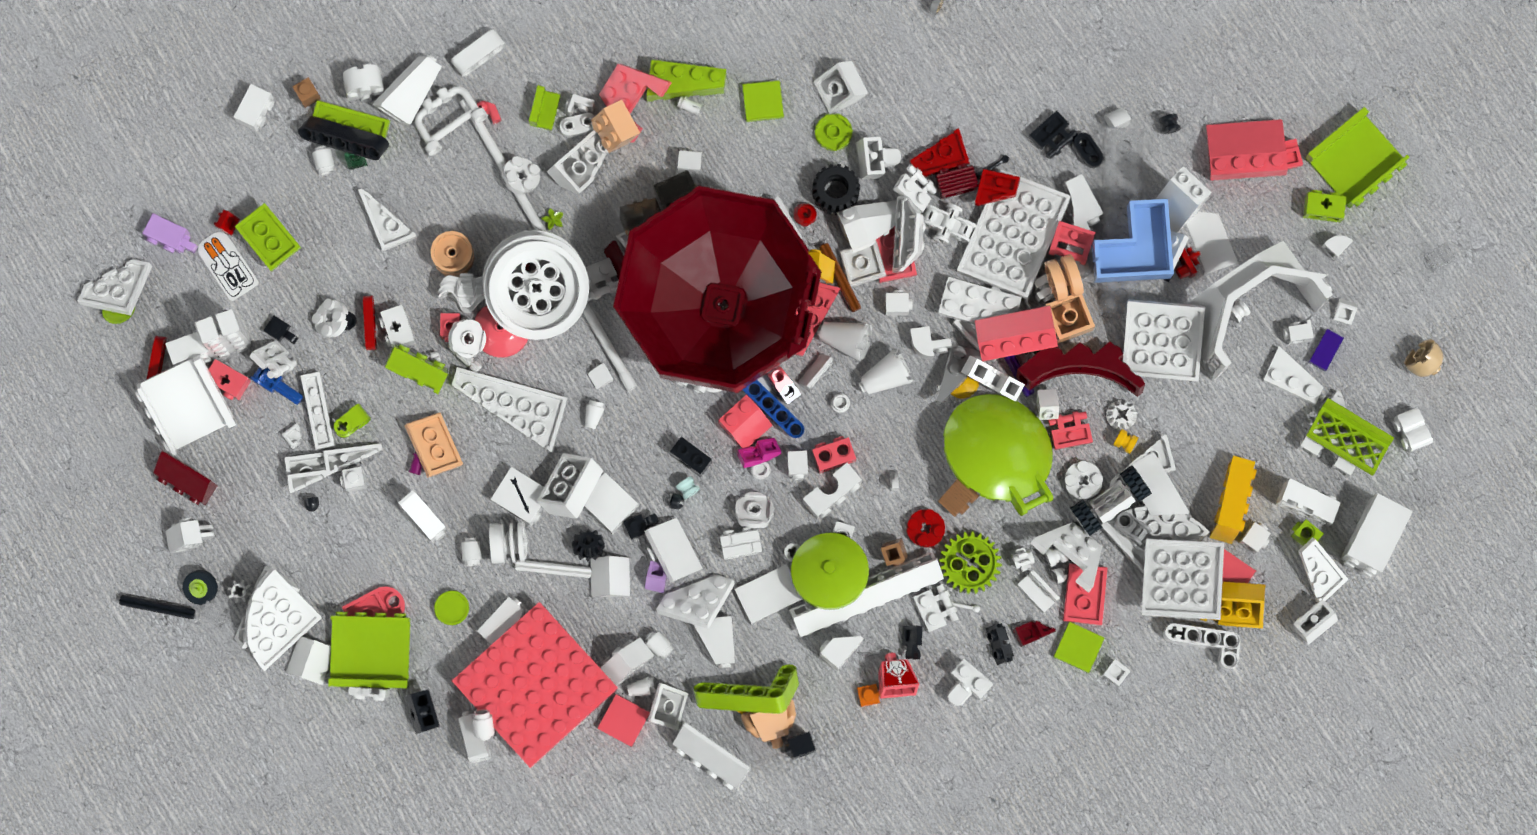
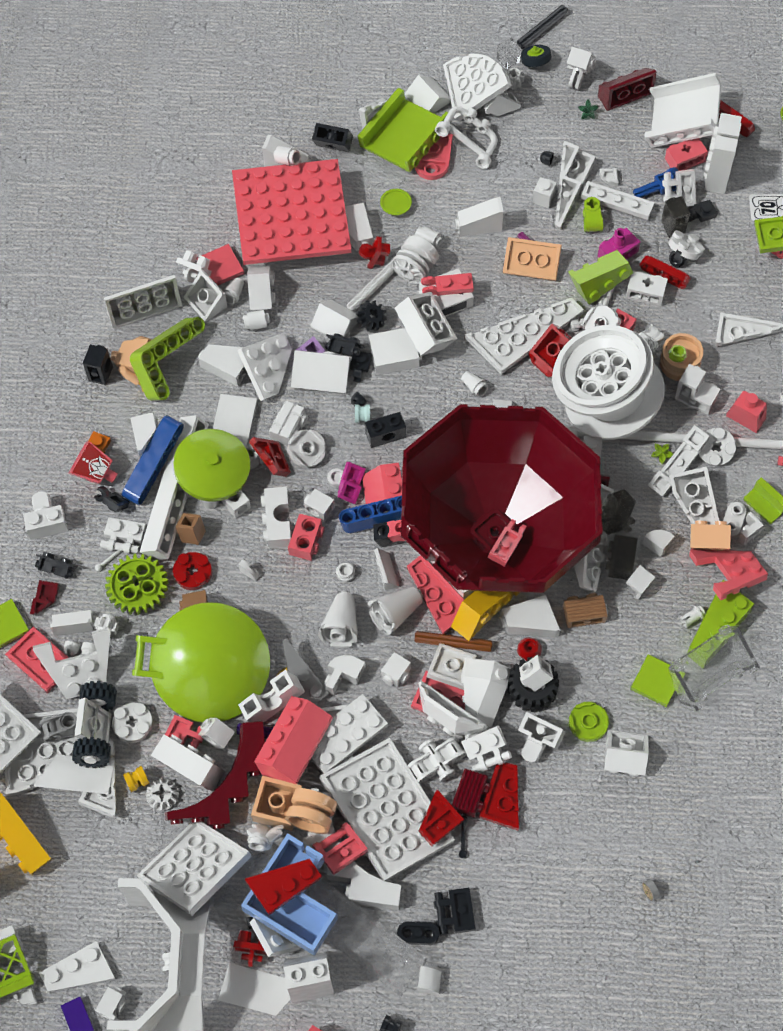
camera: 130 degrees right, 15 degrees down
(231, 500) = (588, 110): none -> clear green plant
(308, 344) = (675, 215): none -> clear smoke brick
(316, 583) = (445, 127): none -> white bar
(371, 377) = (622, 241): none -> dark pink brick
(456, 251) = (677, 353): none -> lime plate
(469, 170) = (748, 411): none -> coral torso
(477, 221) = (695, 391): none -> white brick
(514, 493) = (448, 284): none -> coral hinge
(517, 363) = (548, 348): none -> red slope
(522, 584) = (375, 253): none -> red hips
(557, 197) = (680, 460): none -> white slope
(631, 541) = (337, 342): none -> black hinge
(641, 169) = (658, 541): none -> white brick
(646, 738) = (193, 269): none -> white hips
(733, 60) = (711, 667): none -> clear windscreen
(734, 280) = (506, 543): none -> coral hinge
(741, 183) = (585, 610): none -> medium nougat brick
(781, 534) = (272, 455): none -> red wing
(833, 184) = (535, 673): none -> white brick
(858, 626) = (152, 460): none -> blue beam
(1089, 405) = (188, 762): none -> white wedge
(1104, 302) = (262, 836): none -> white plant
(1139, 252) = (283, 884): none -> red wing

